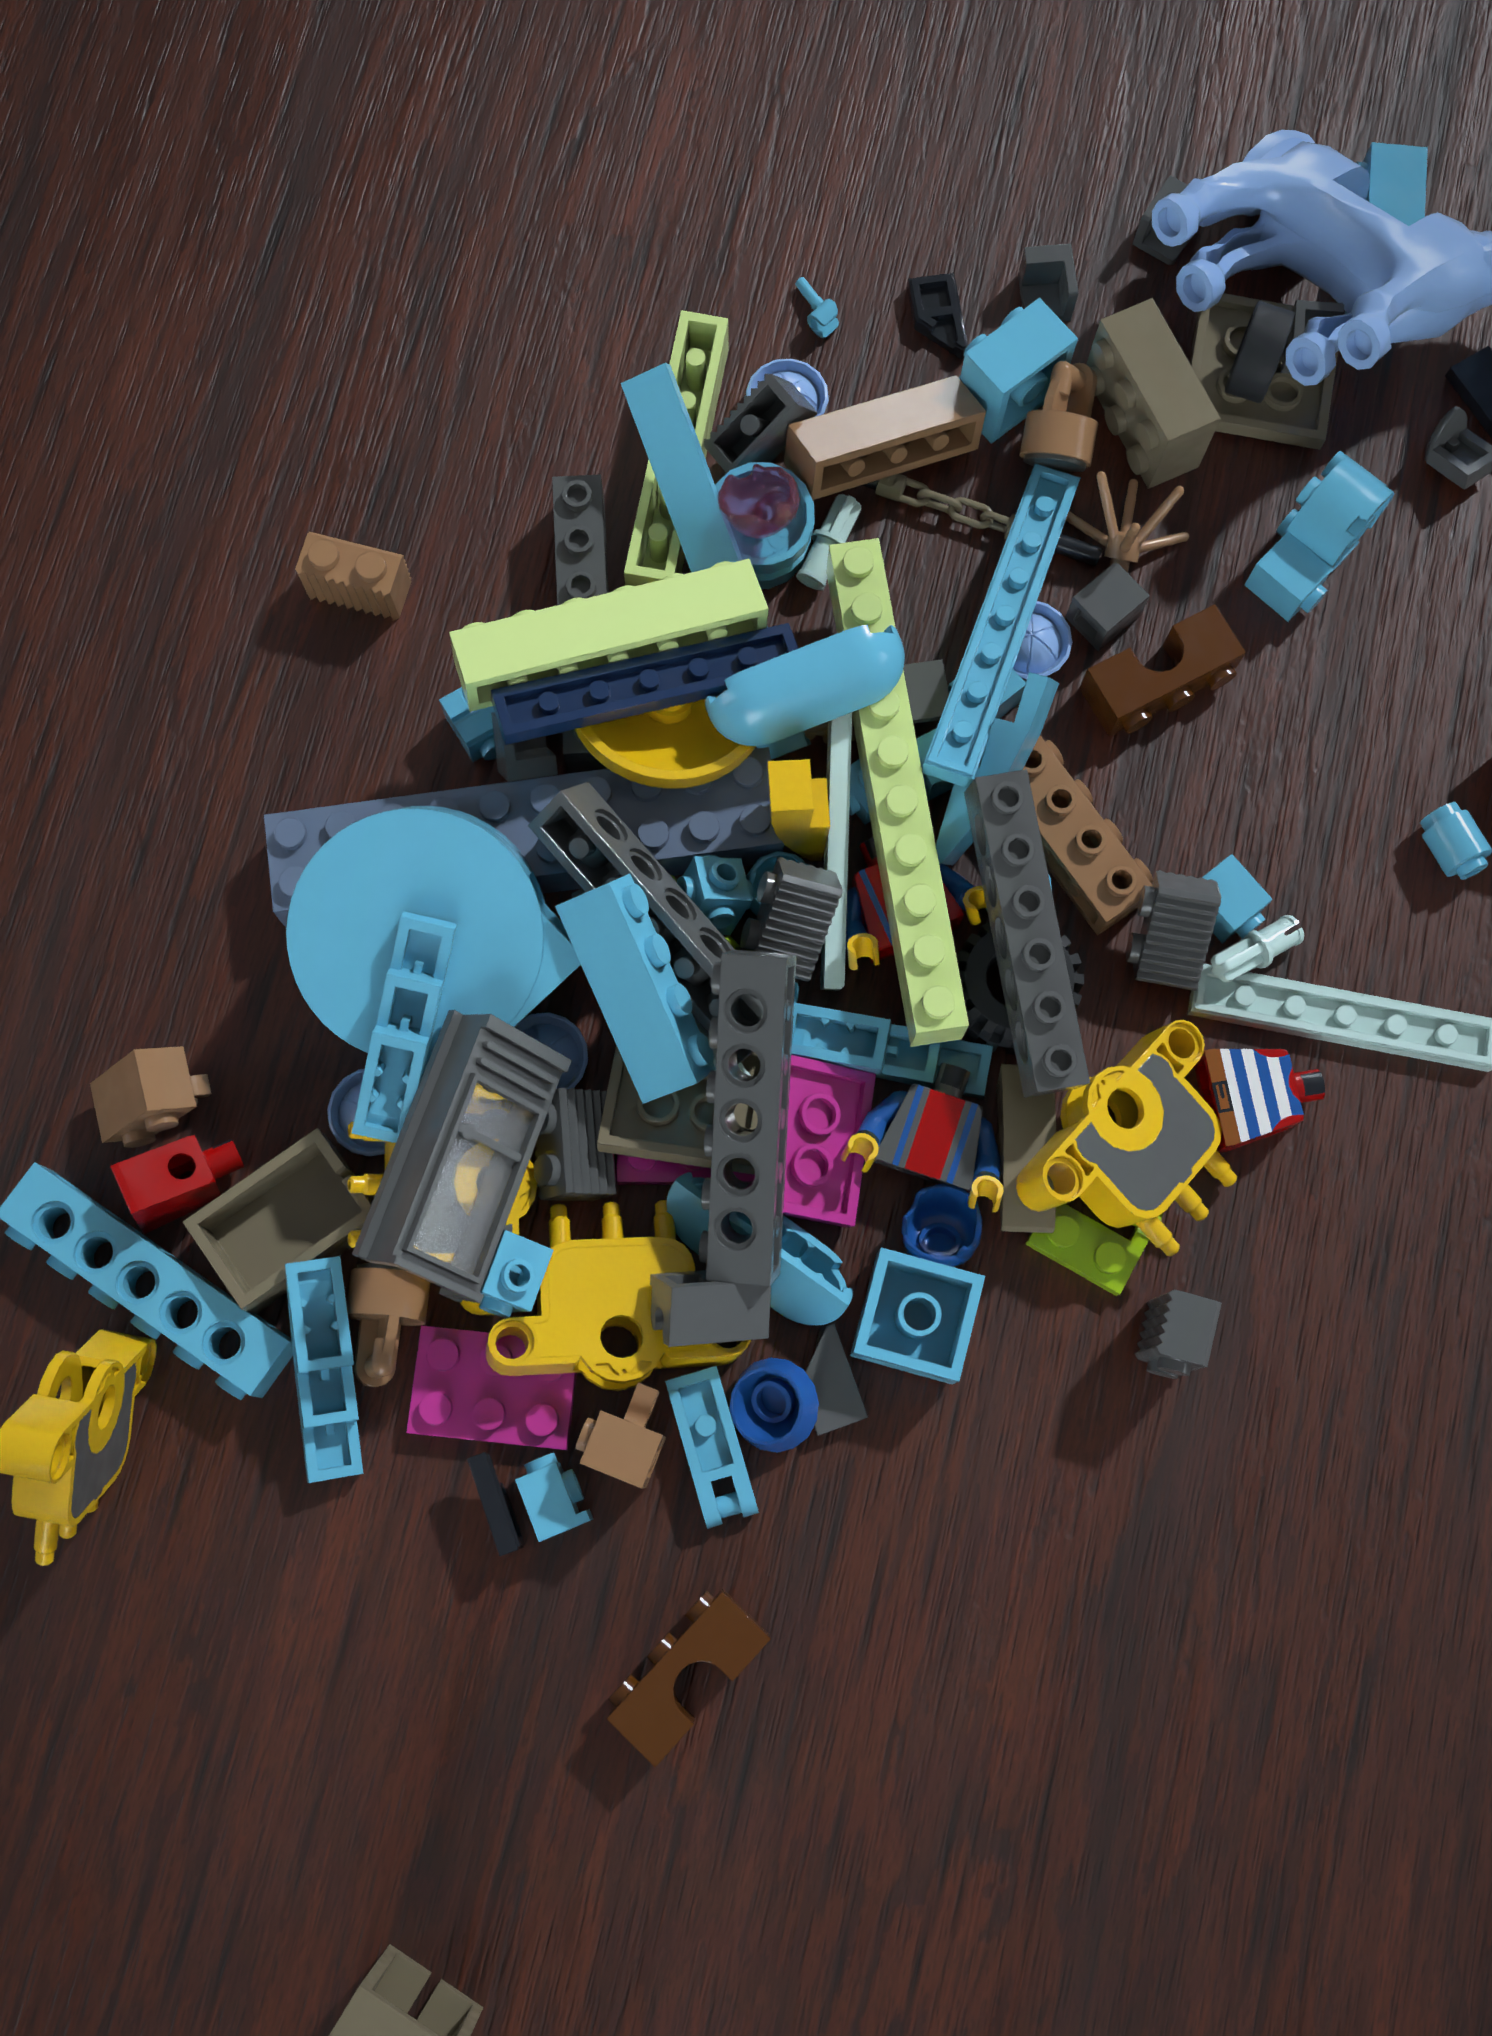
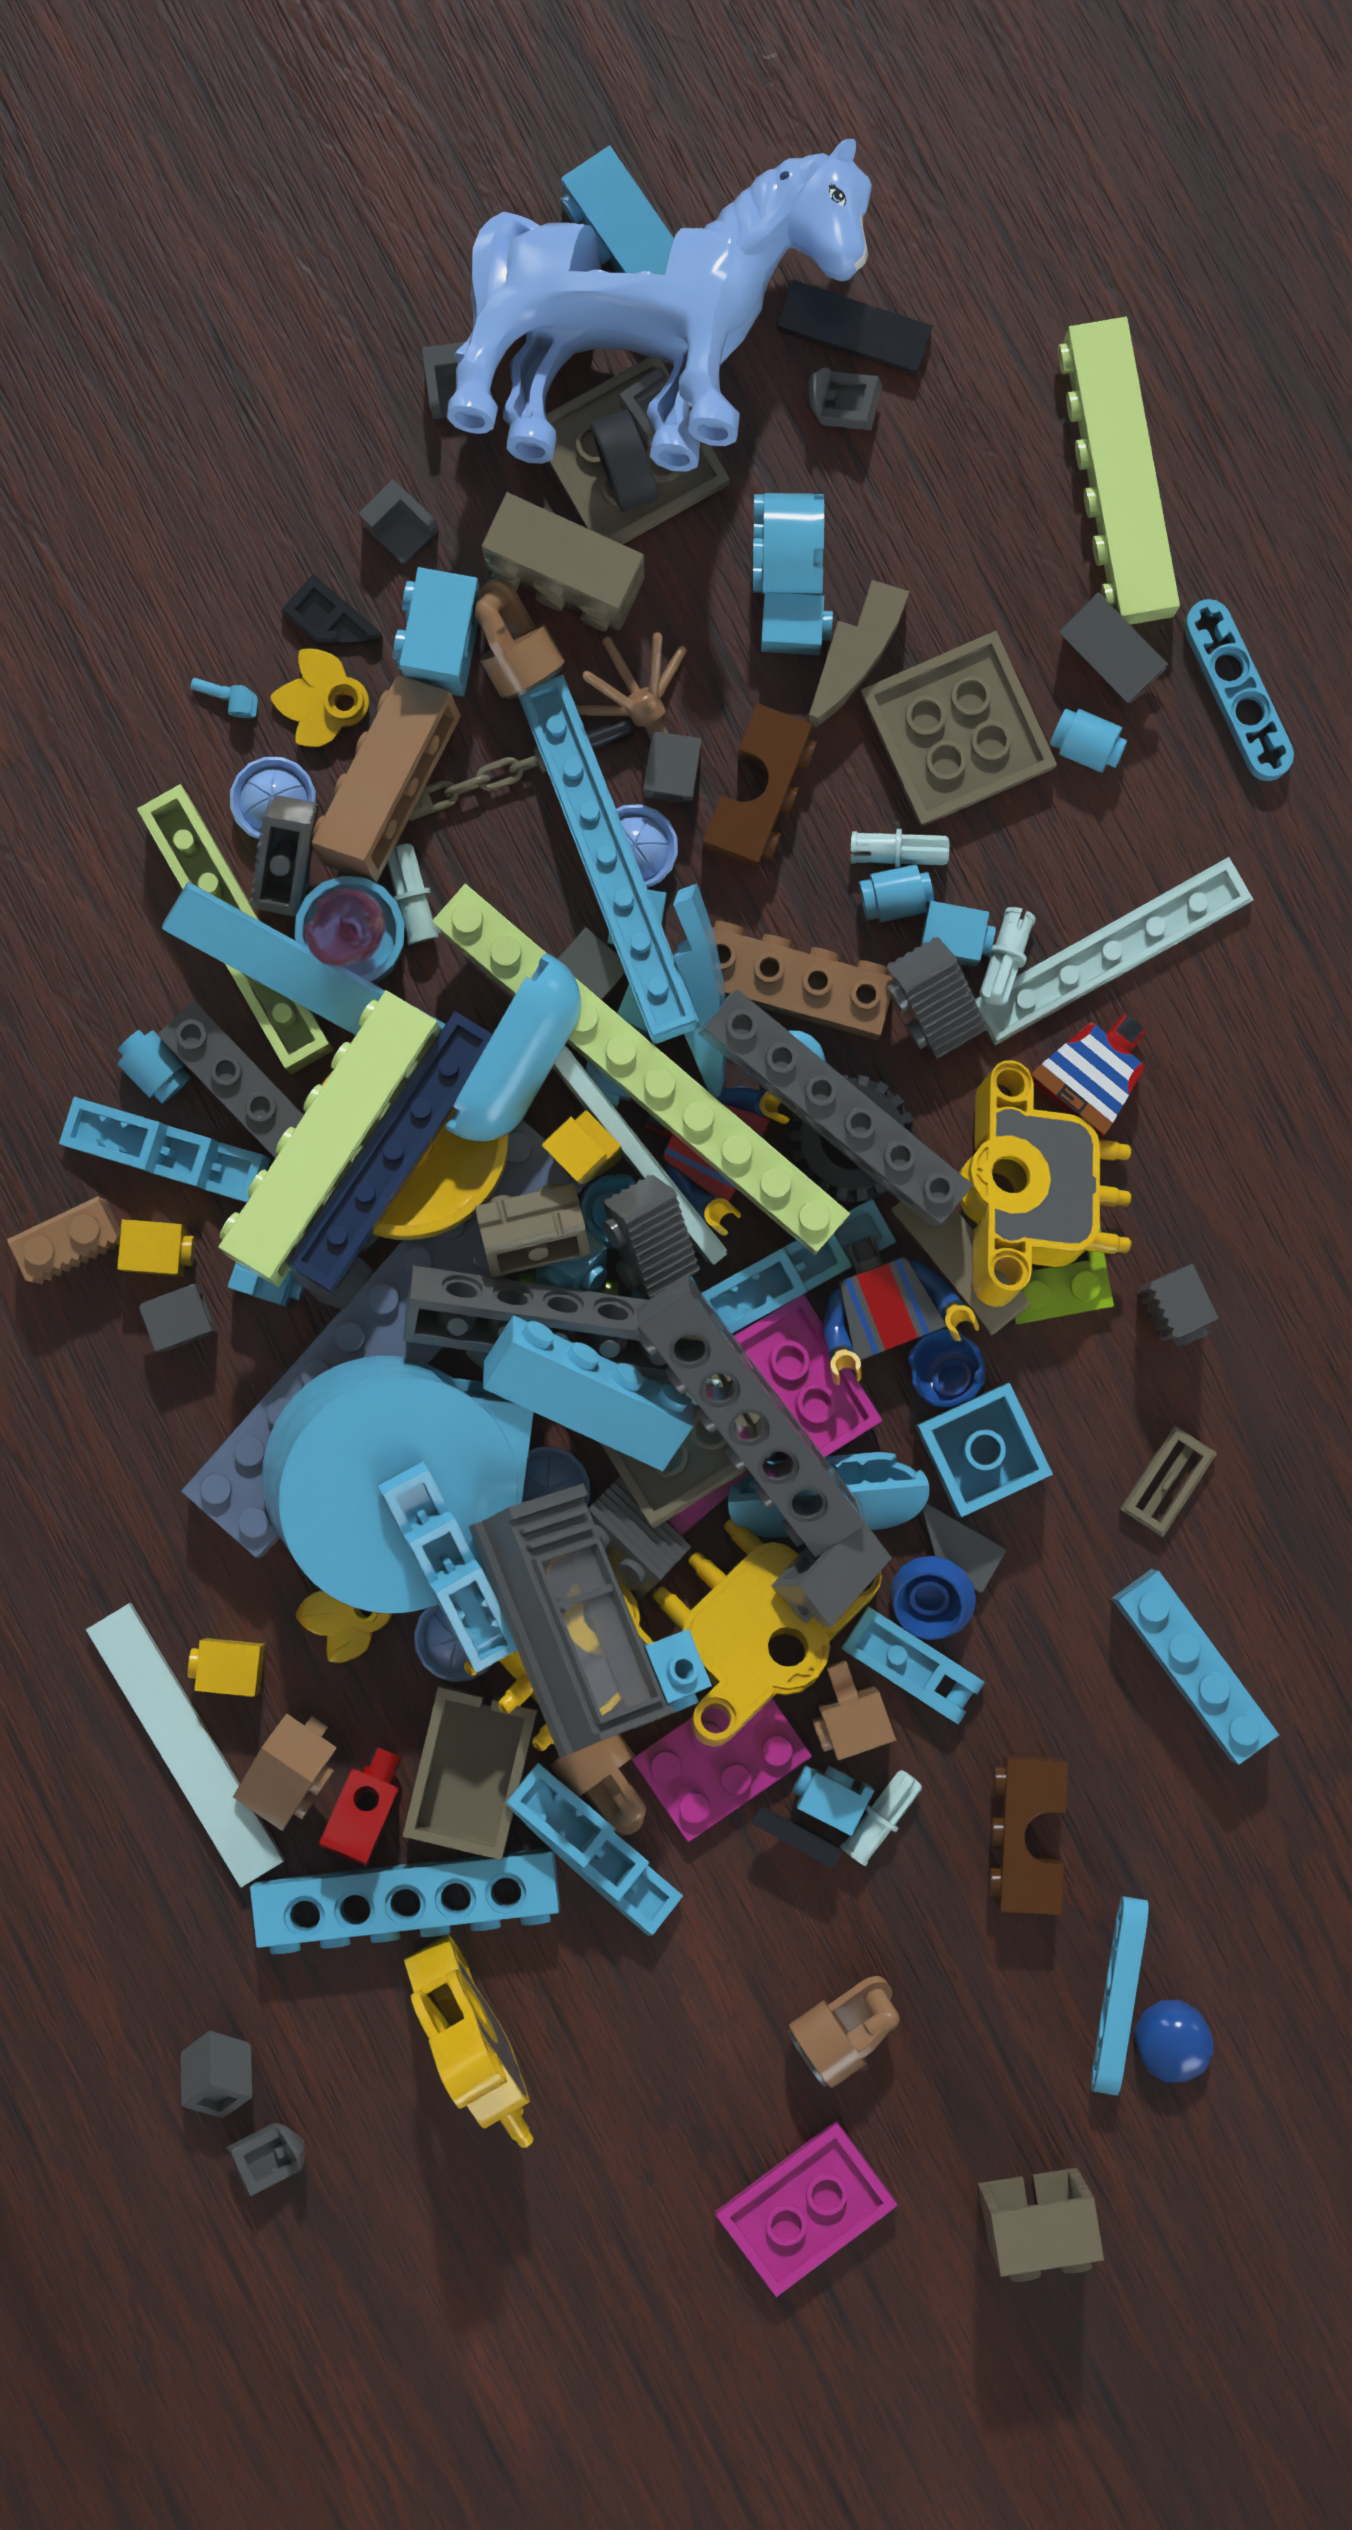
camera: 40 degrees left, 10 degrees up
(95, 1017) = (184, 1744): none -> light aqua tile
(180, 983) = (227, 1667): none -> yellow brick
(228, 1834) = (806, 2208): none -> dark pink plate
(297, 1028) = (345, 1626): none -> yellow plate
(383, 697) = (177, 1318): none -> dark grey panel
(385, 1706) = (823, 2030): none -> medium nougat piece
(412, 633) = (155, 1248): none -> yellow brick
(473, 556) = (161, 1149): none -> medium azure slope
(530, 508) = (152, 1065): none -> medium azure brick
(578, 1551) = (882, 1817): none -> light aqua axle
(645, 1886) = (1119, 1995): none -> medium azure beam
(658, 1969) = (1174, 2041): none -> blue hair
(703, 831) = (532, 1229): none -> dark tan brick
(879, 358) = (314, 698): none -> yellow plate
(945, 1654) = (1195, 1666): none -> medium azure brick
(1005, 1489) = (1151, 1470): none -> dark tan tile
(1205, 832) = (896, 894): none -> medium azure brick
(1236, 803) = (899, 848): none -> light aqua axle
(1323, 634) = (857, 649): none -> dark tan slope
(1356, 753) = (958, 728): none -> dark tan plate

